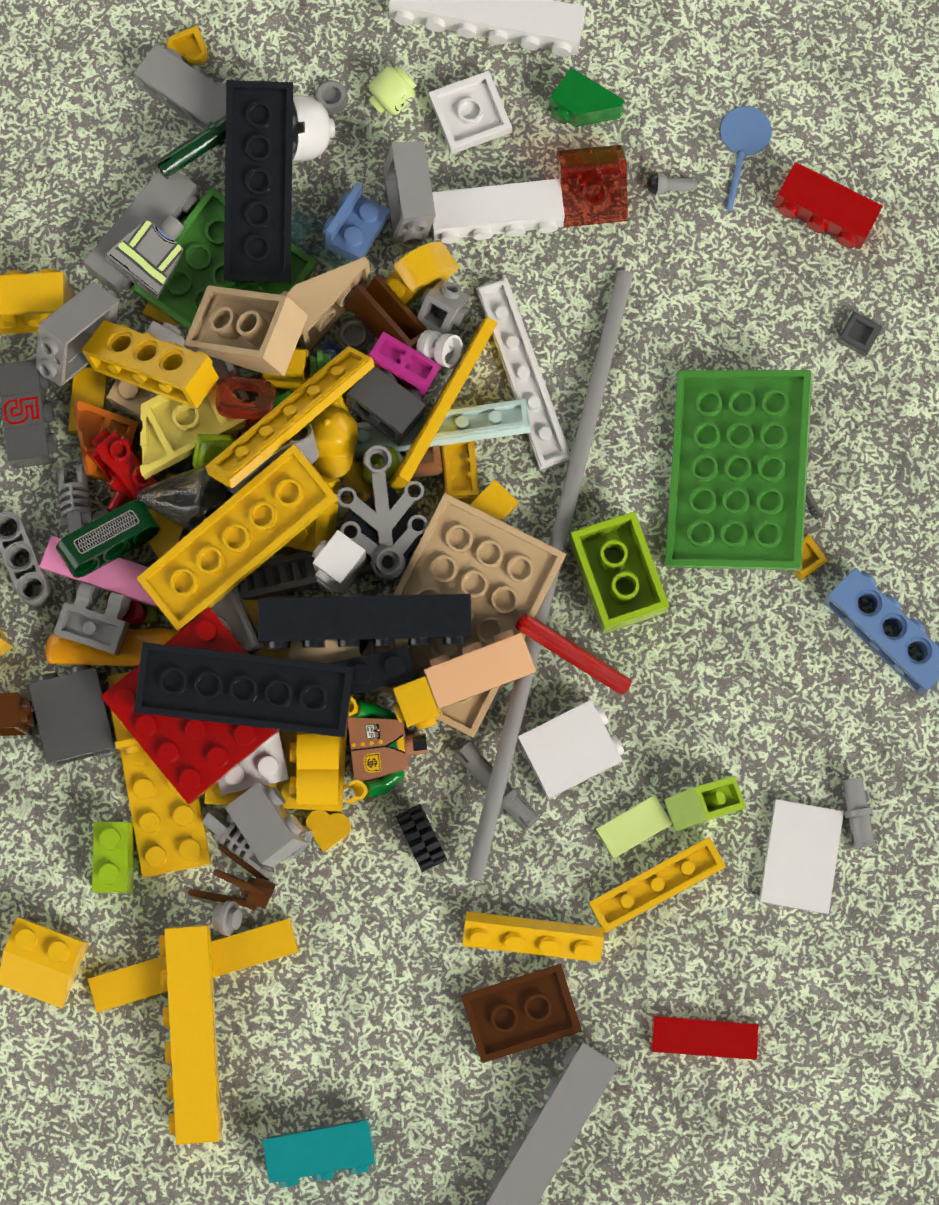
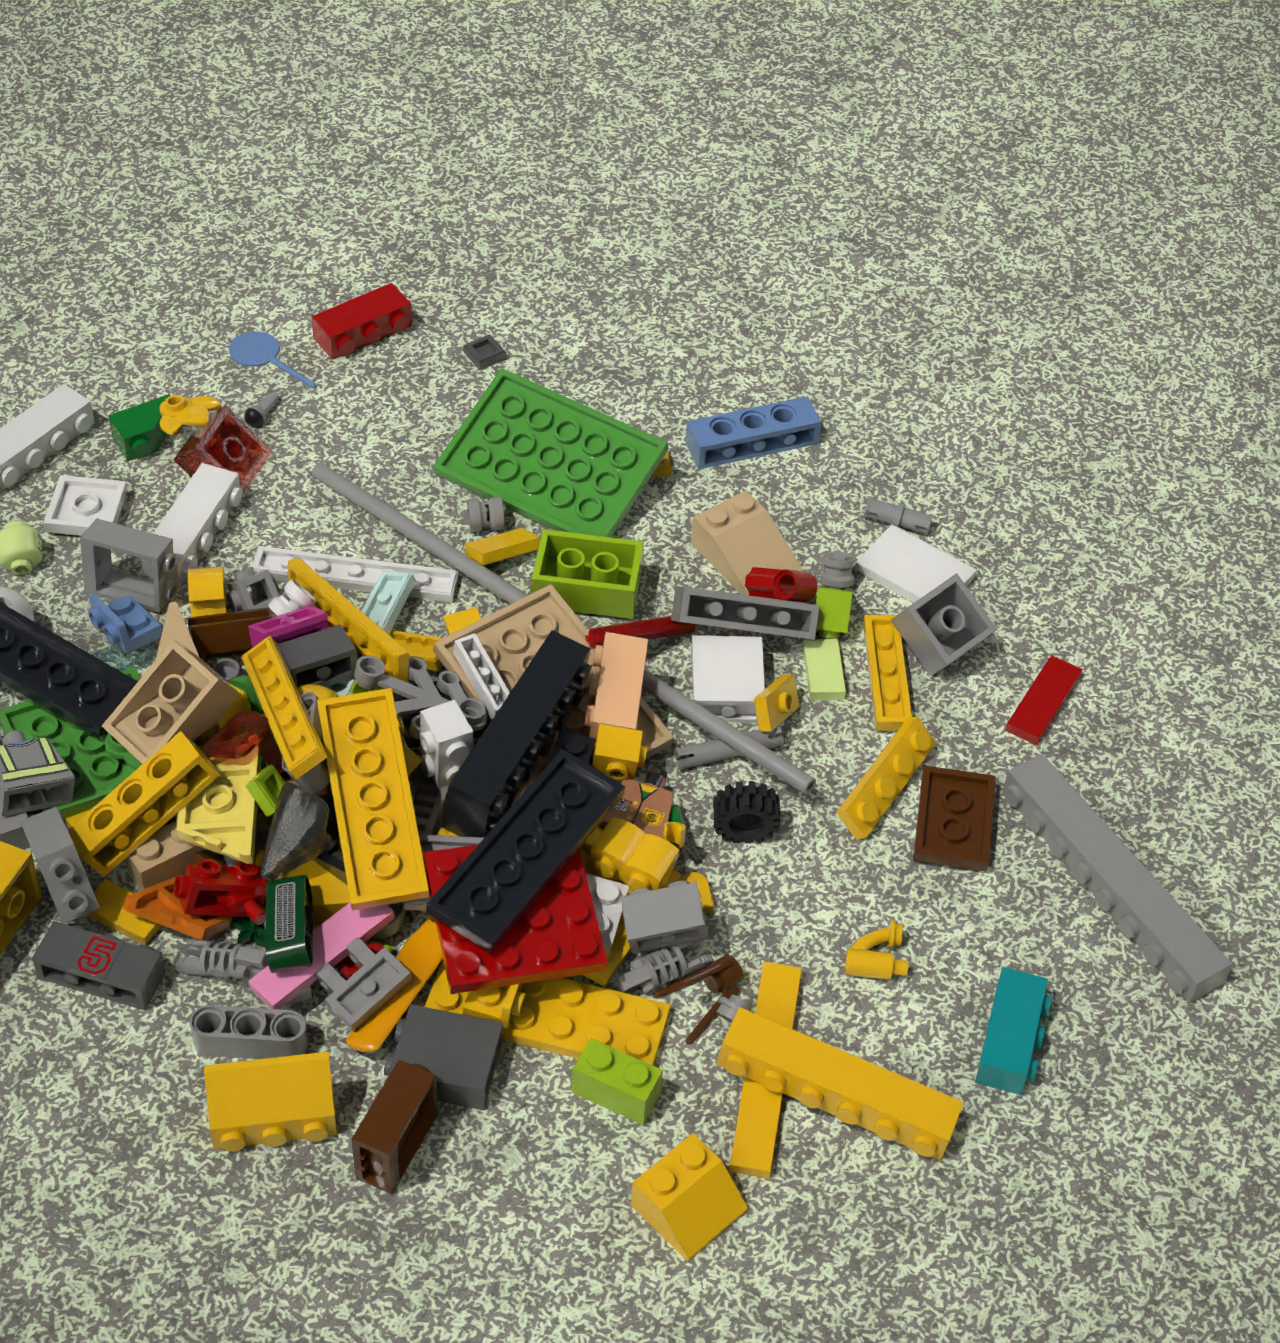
camera: 65 degrees left, 30 degrees down
(333, 1010) = (876, 964): none -> yellow plant
(425, 555) = (481, 673): none -> white piece
(556, 807) = (776, 702): none -> yellow plate
(604, 133) = (183, 411): none -> yellow plate
(616, 481) = (502, 546): none -> yellow tile
(639, 734) = (745, 612): none -> light grey brick
(647, 446) = (477, 514): none -> light grey wheel
(690, 755) = (781, 584): none -> red piece
(725, 916) = (943, 624): none -> light grey brick
(735, 696) = (740, 537): none -> tan slope
(761, 788) = (838, 569): none -> light grey wheel

